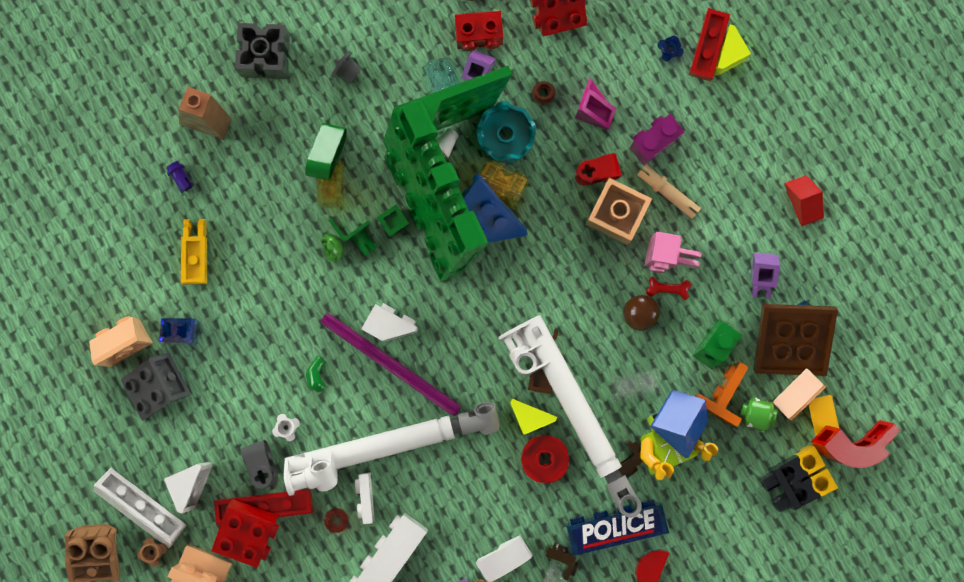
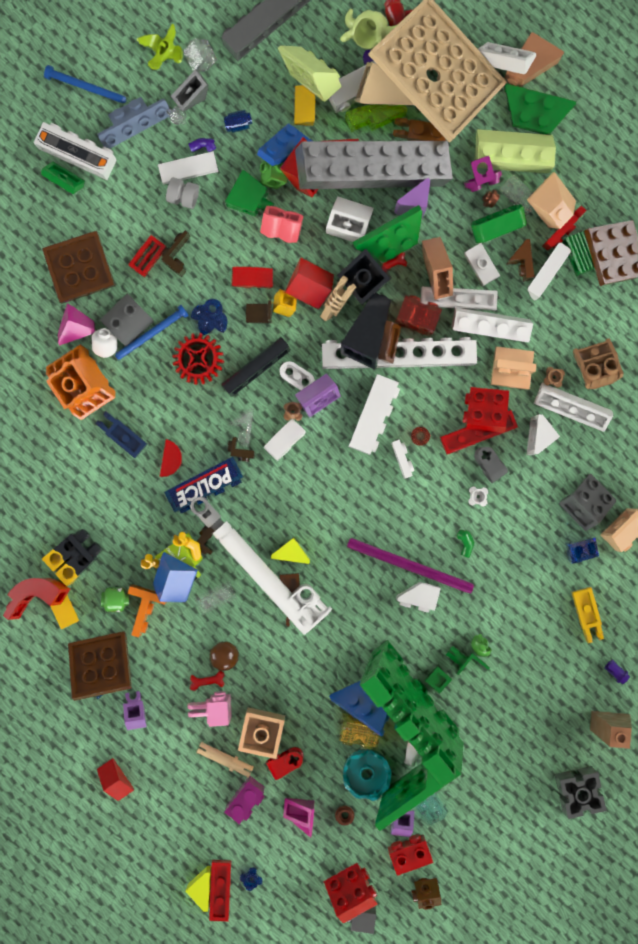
camera: 165 degrees right, 5 degrees up
(321, 466) = (442, 473): white piece -> none
(325, 151) = (506, 722): beam -> none
(331, 193) = (495, 696): clear yellow slope -> none
(346, 68) = (509, 795): dark grey piece -> none
(559, 459) = (275, 533): red plate -> none
(717, 344) = (159, 646): green torso -> none
(799, 394) = (86, 623): light nougat tile -> none

